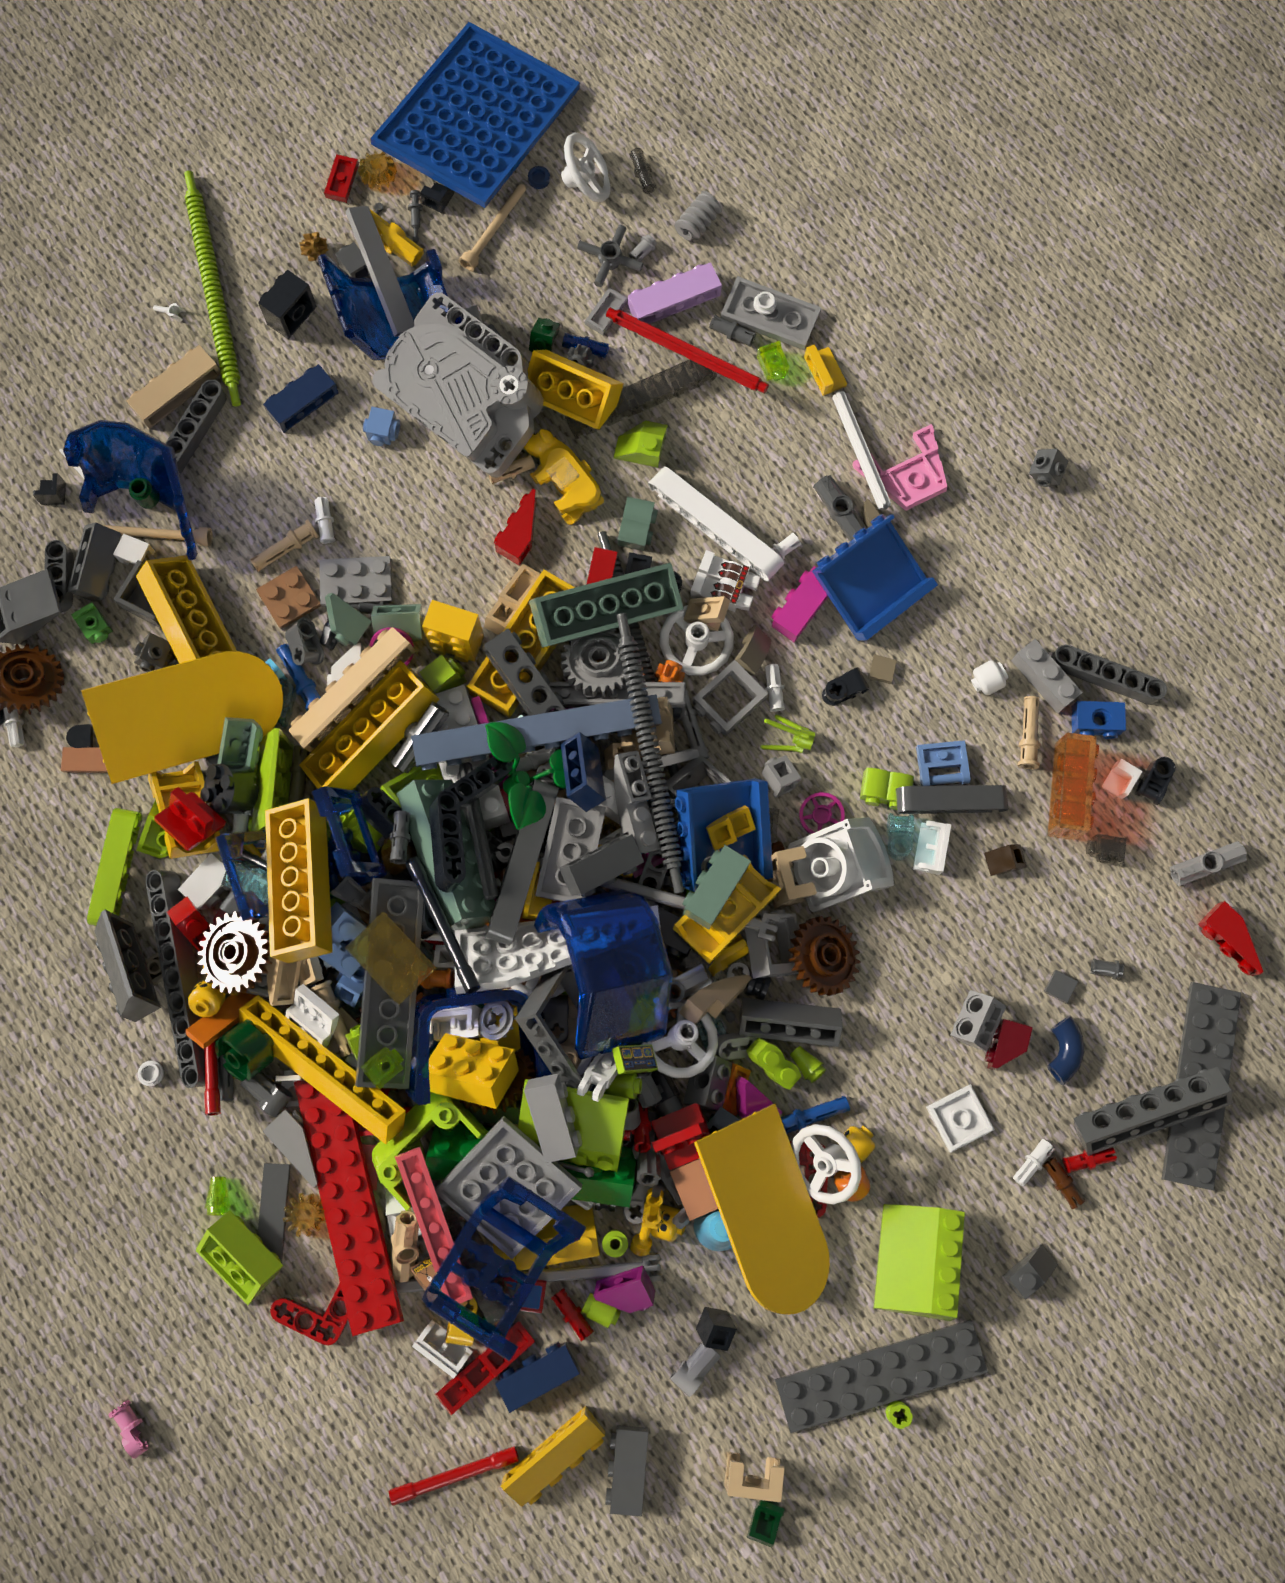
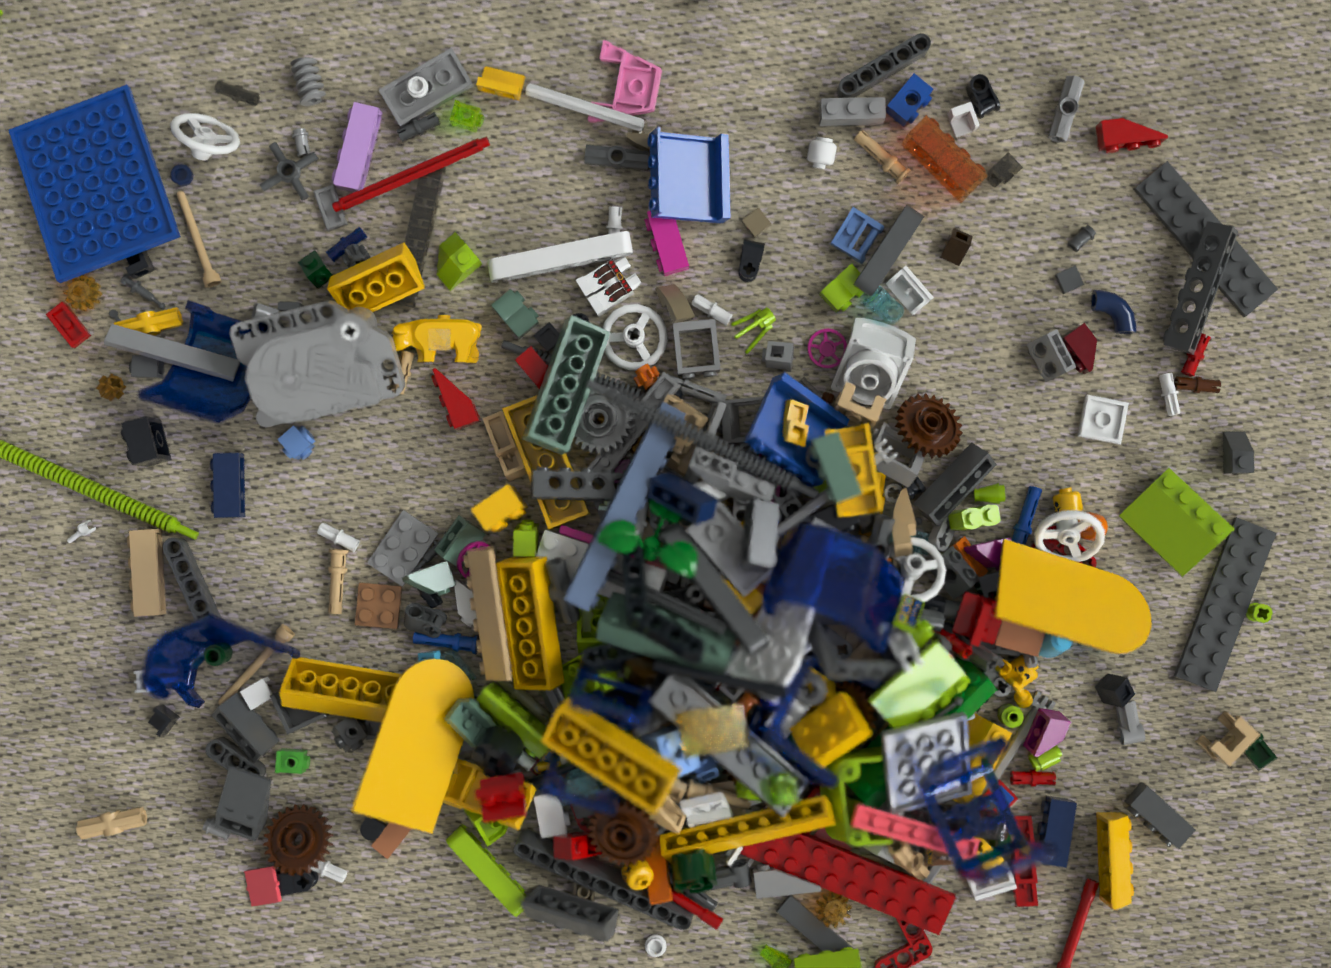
camera: 45 degrees left, 10 degrees up
(400, 837) = (633, 661): dark grey pin -> none
(553, 1118) = (909, 701): light grey brick -> none
(708, 611) = (622, 315): tan slope -> none

